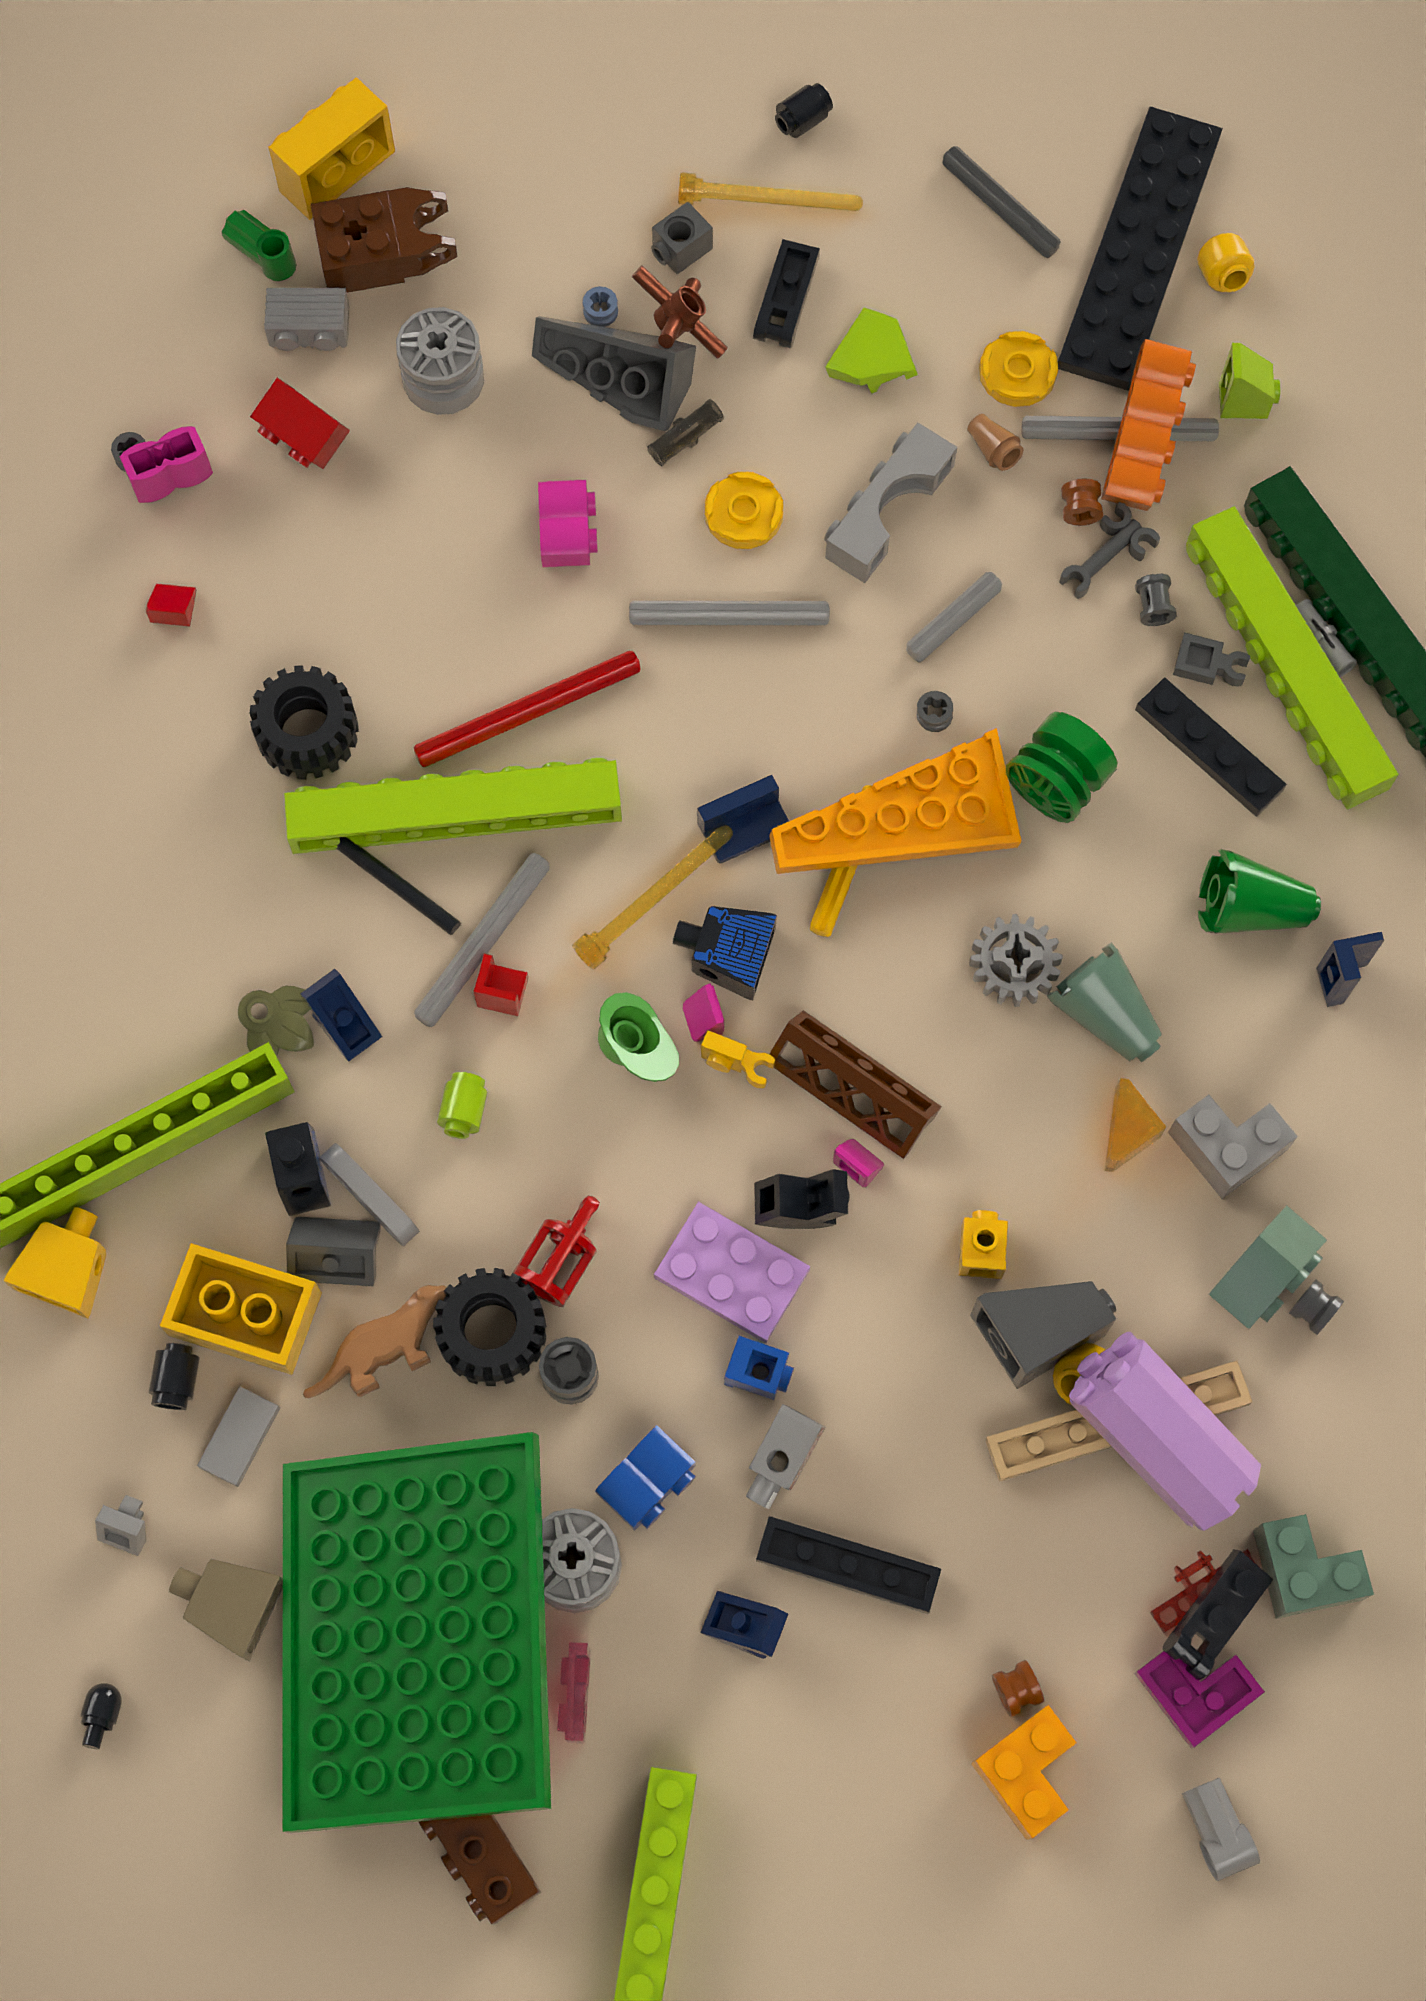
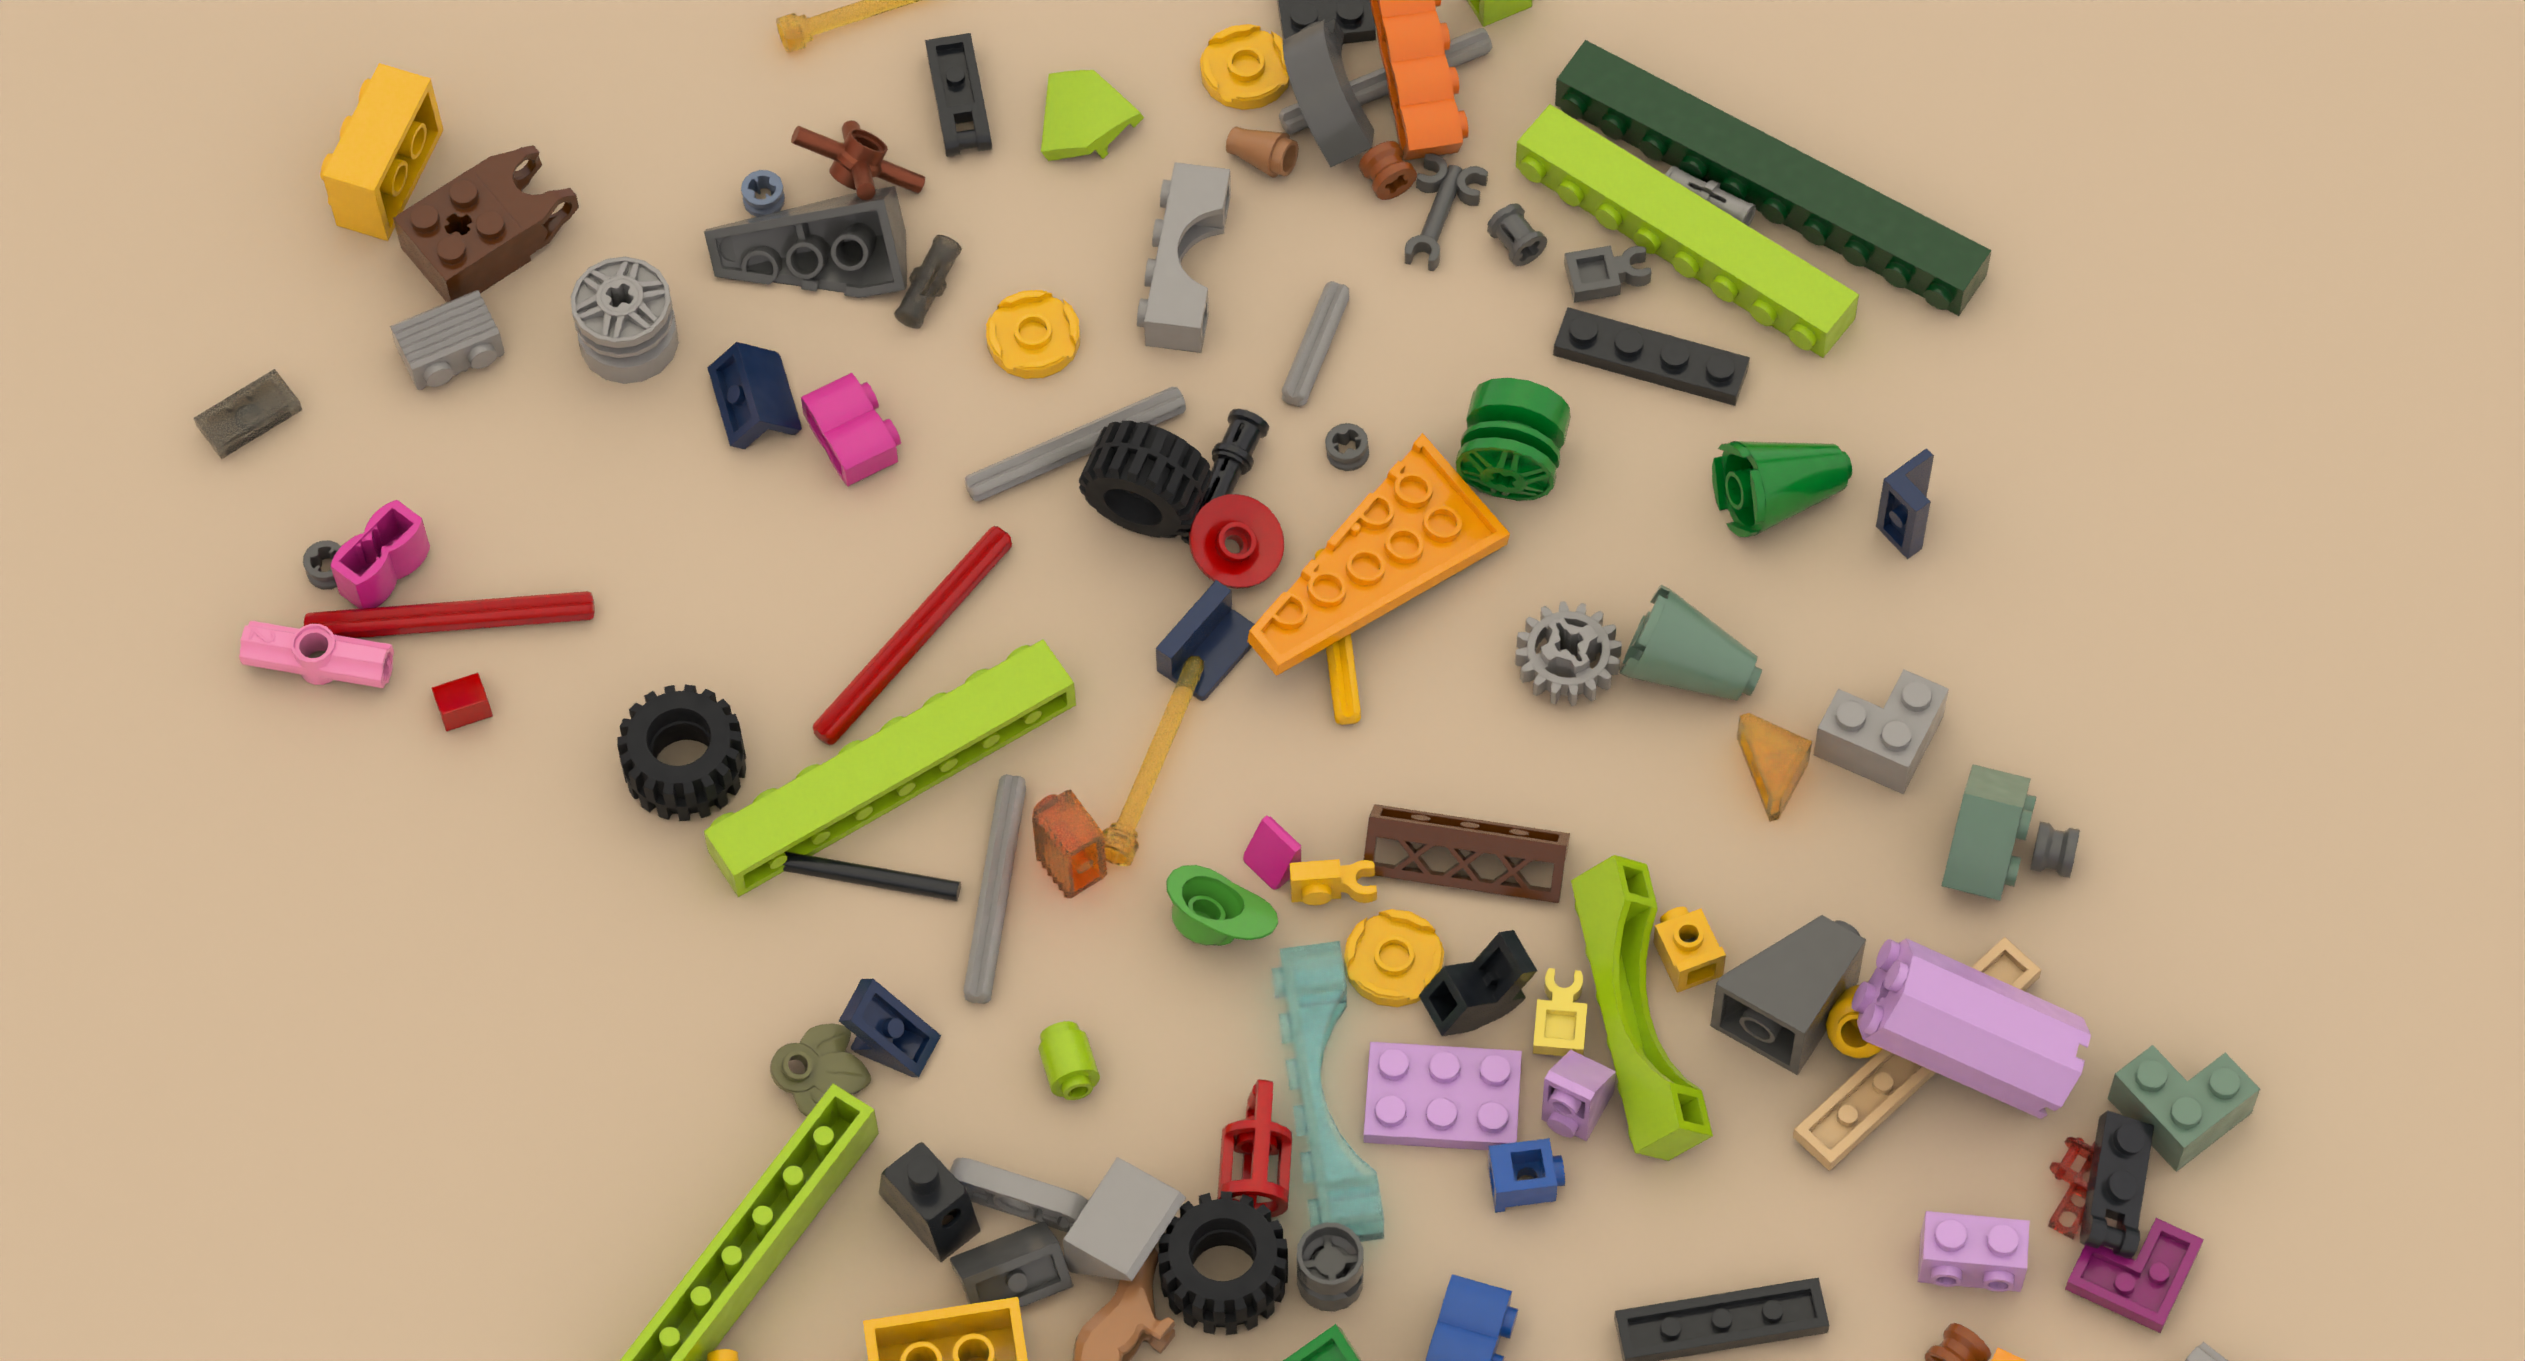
camera: 25 degrees left, 10 degrees down
(99, 532) = (343, 660): none -> bright pink piece
(135, 309) = (248, 413): none -> clear smoke plate
(197, 534) = (456, 615): none -> red axle
(261, 244) = (352, 287): green piece -> none
(300, 424) = (504, 452): red brick -> none
(426, 1259) = (1120, 1223): none -> light grey slope
(499, 987) = (1043, 927): red panel -> none
(509, 462) = (752, 394): none -> dark blue panel
(548, 932) = (1068, 843): none -> clear orange brick
(673, 1146) = (1315, 998): none -> clear light blue arch
(681, 224) = (815, 69): dark grey brick -> none
(729, 947) = (1263, 775): black torso -> none
(753, 1141) = (1393, 957): none -> yellow tile
(759, 668) = (1145, 479): none -> black tyre
(794, 1436) = (1599, 1222): light grey torso -> none
(827, 746) = (1249, 525): none -> red dish
(831, 1324) = (1576, 1095): none -> lavender slope
(839, 681) = (1233, 454): none -> black pin
(851, 1257) = (1560, 1021): none -> light yellow plate
(857, 1161) = (1525, 927): dark pink slope -> none
(893, 1359) = (1616, 918): none -> lime arch
(1062, 417) = (1325, 93): none -> dark grey arch
(1075, 1610) = (1973, 1251): none -> lavender brick

